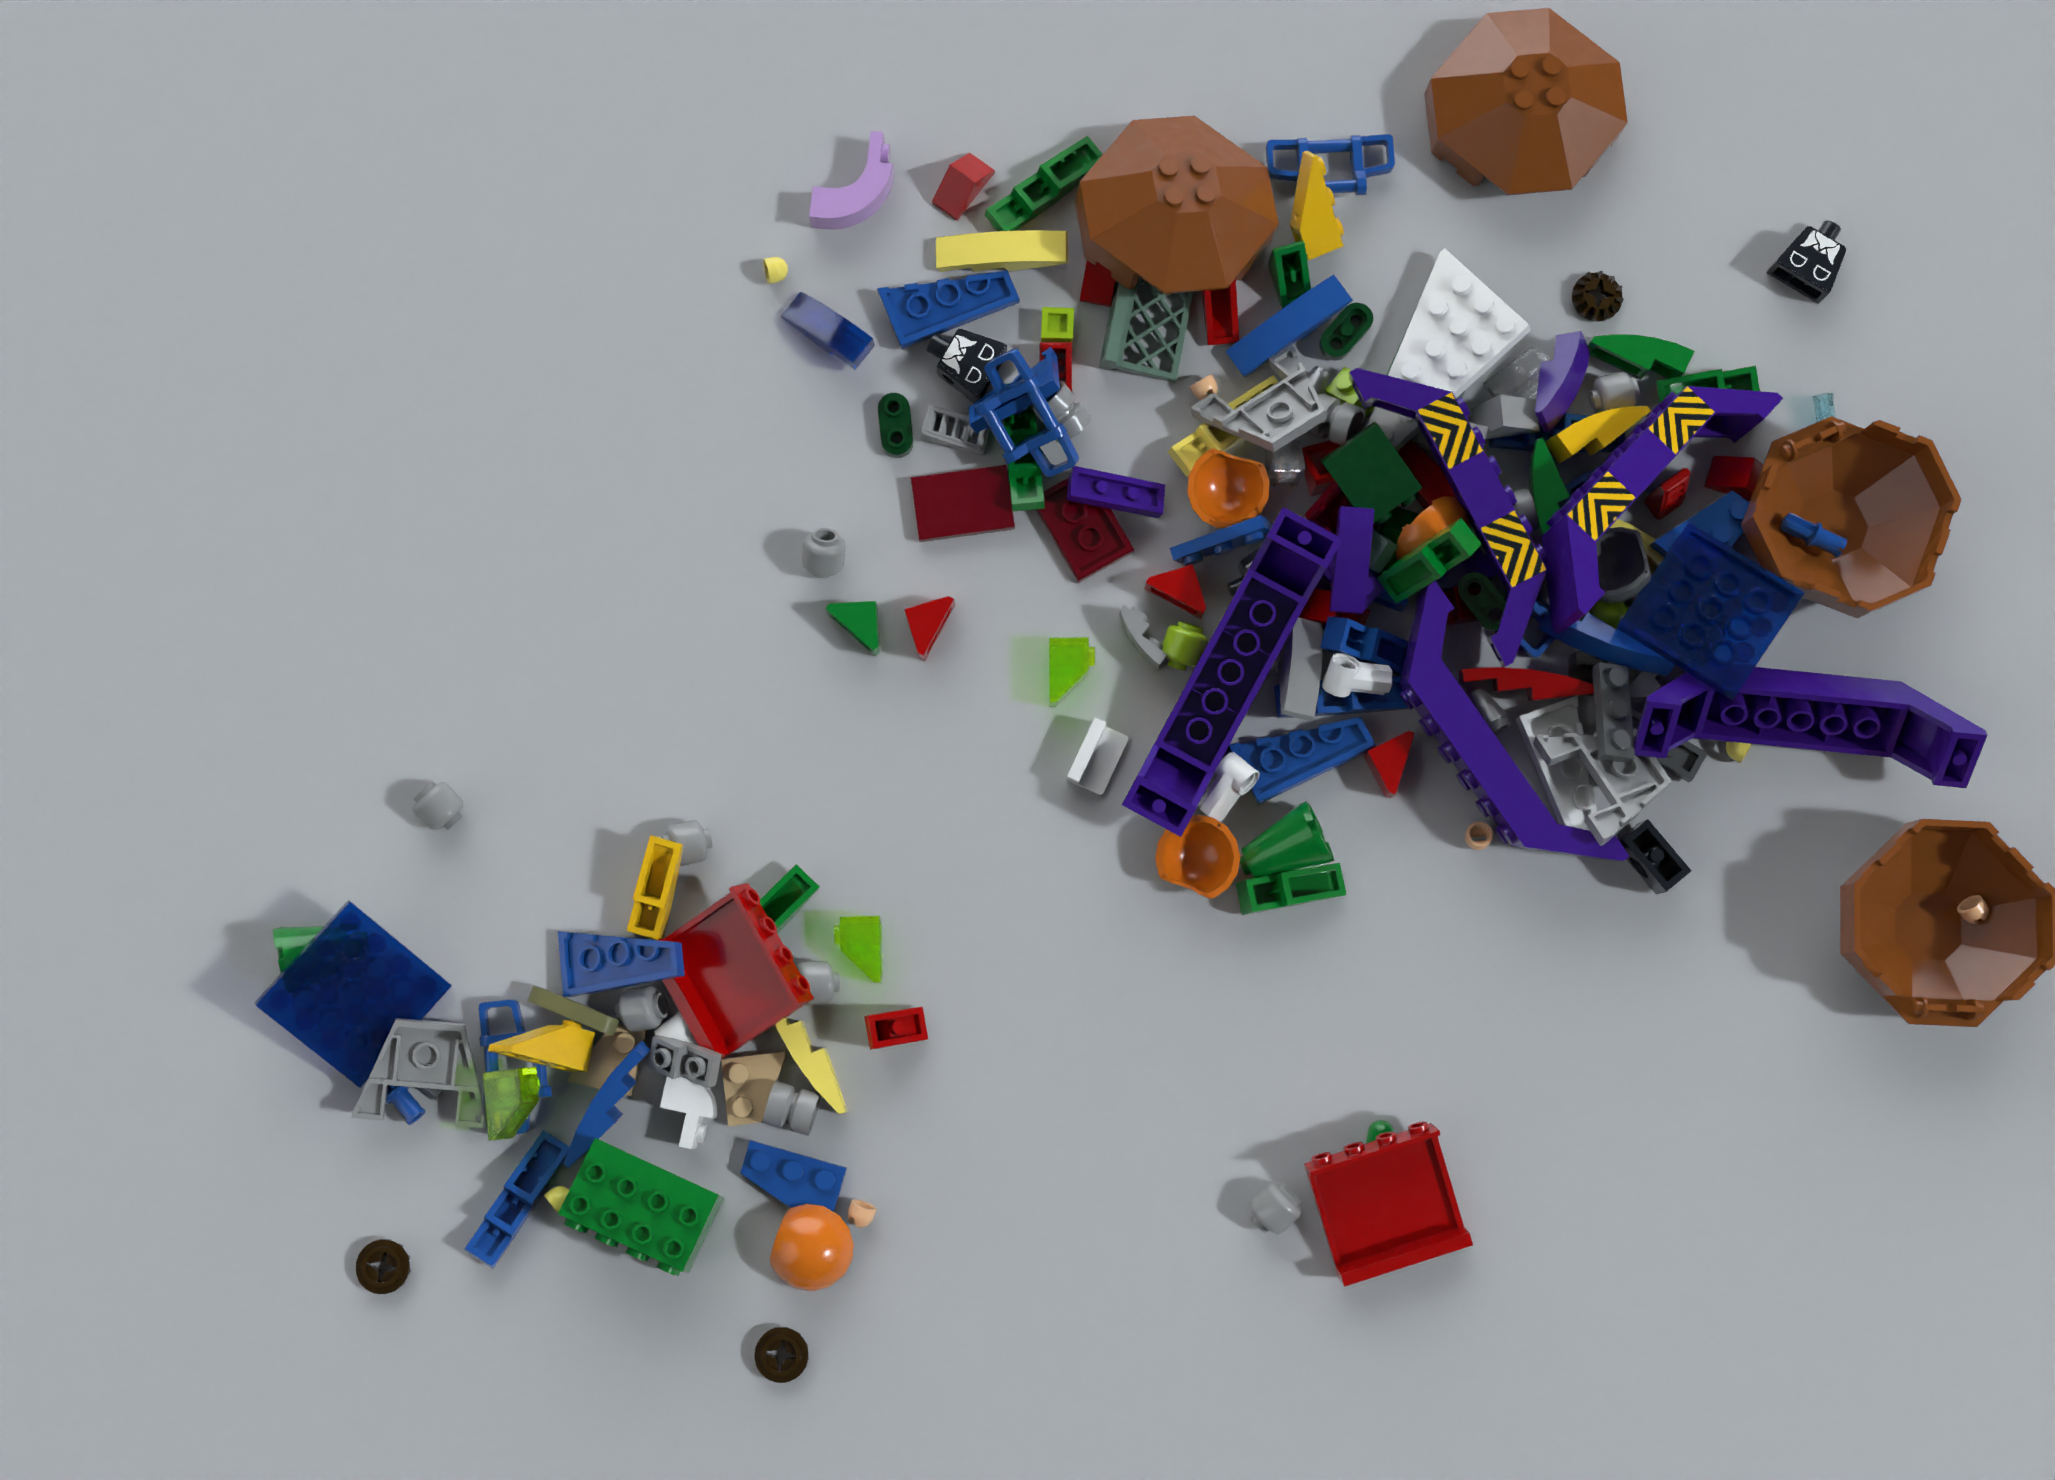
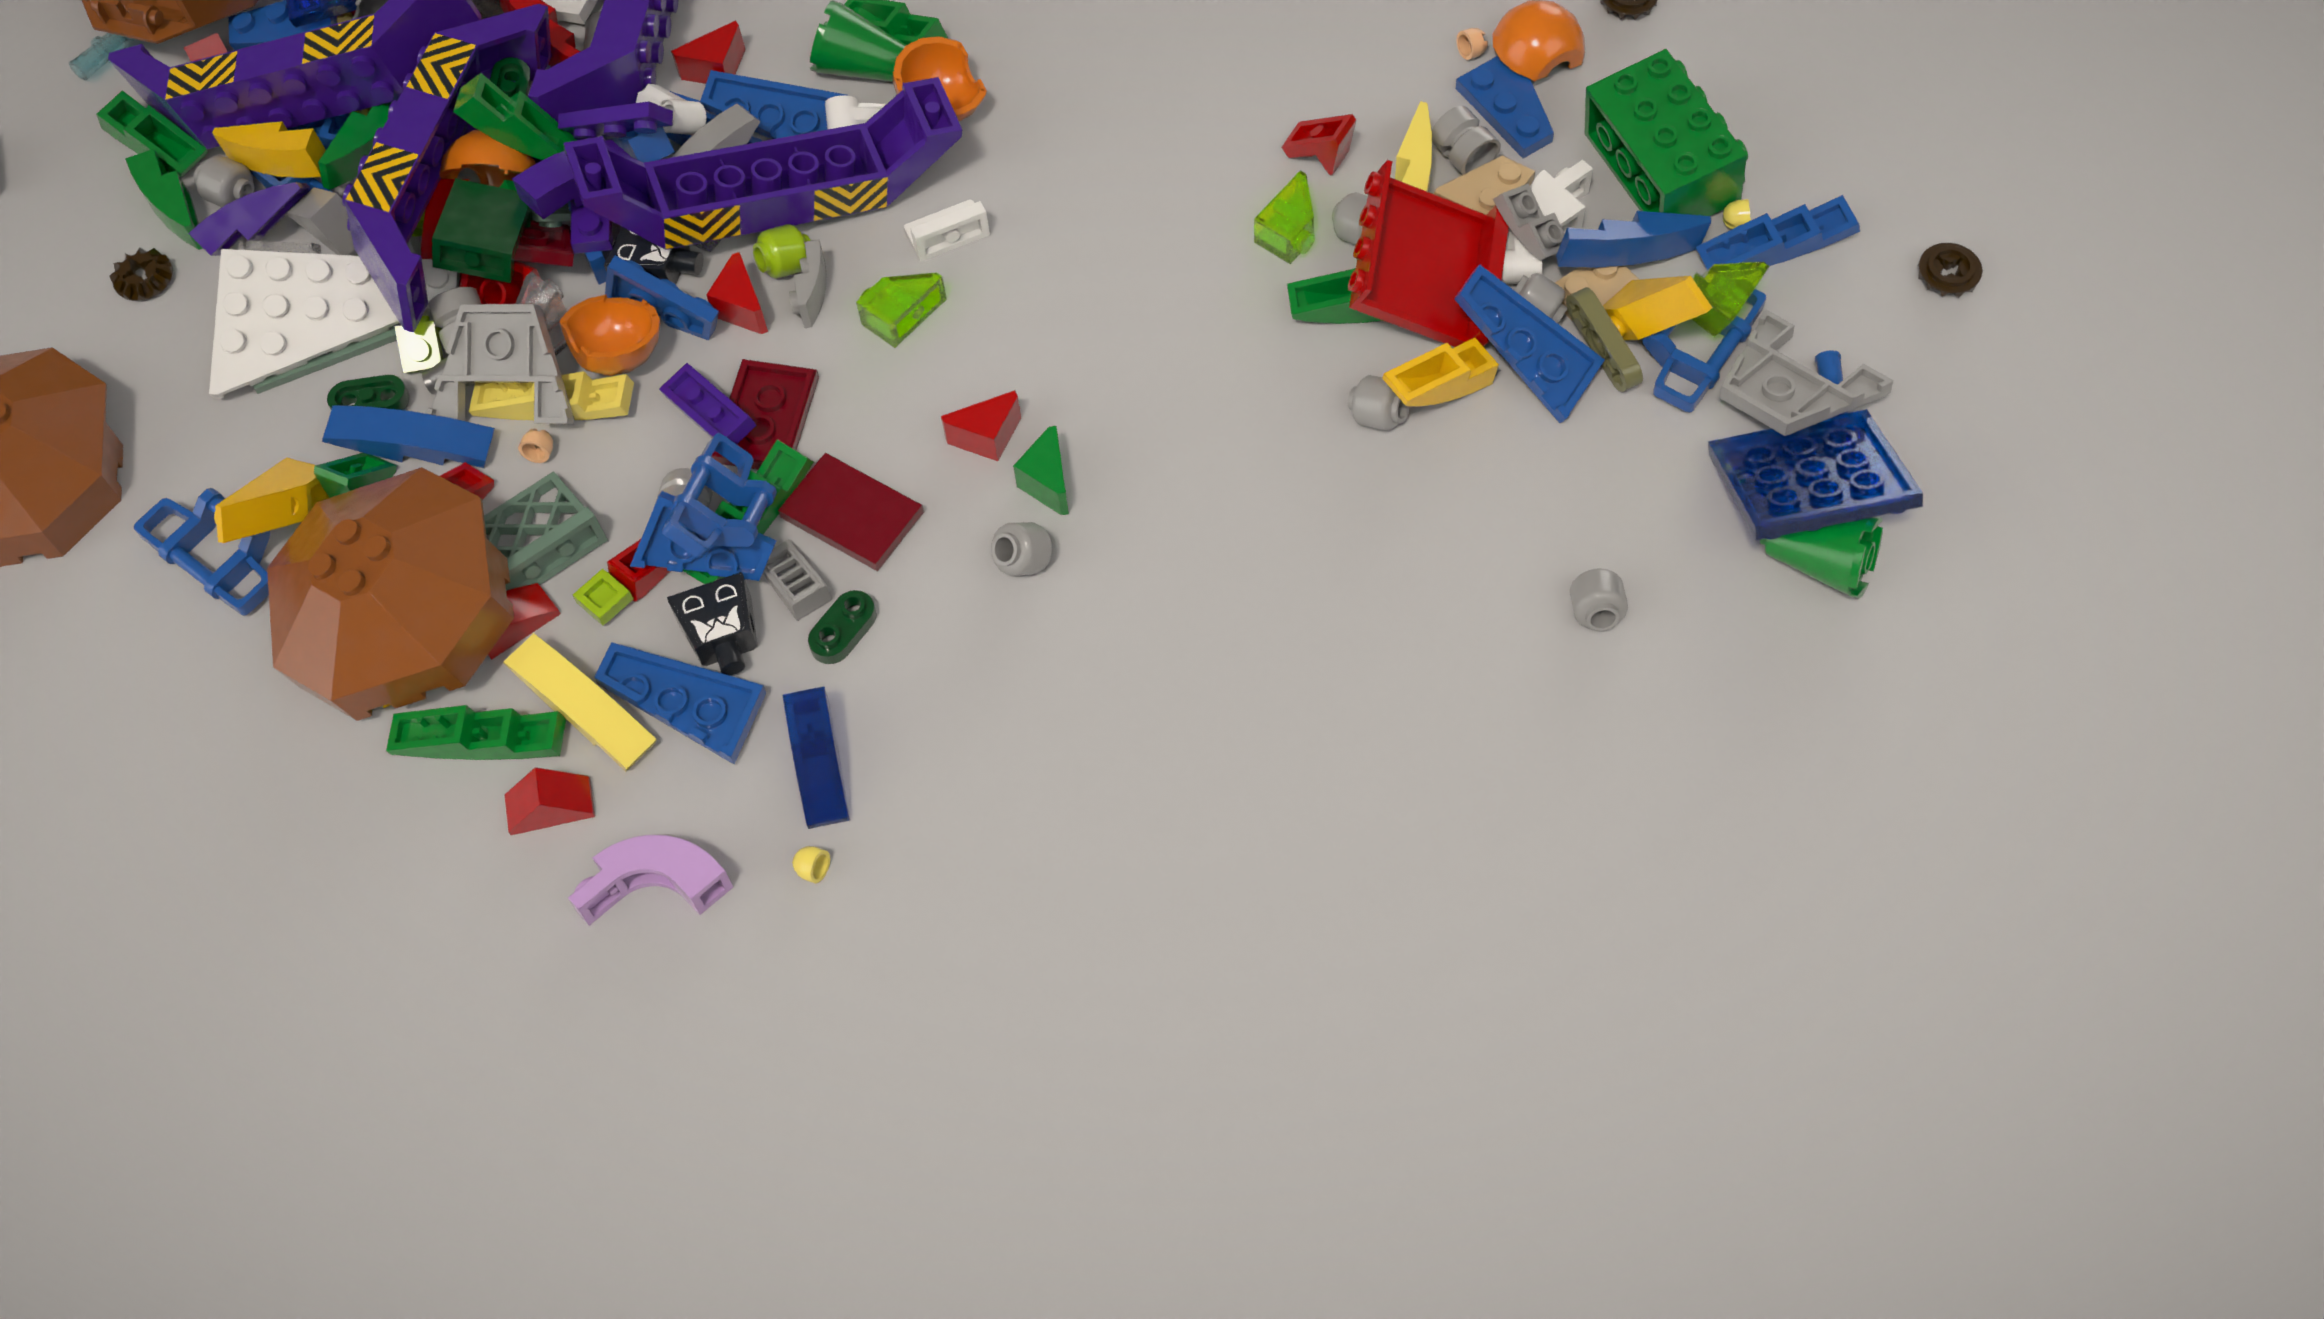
camera: 135 degrees left, 20 degrees down
(1368, 622) = (616, 120): none -> dark purple plate

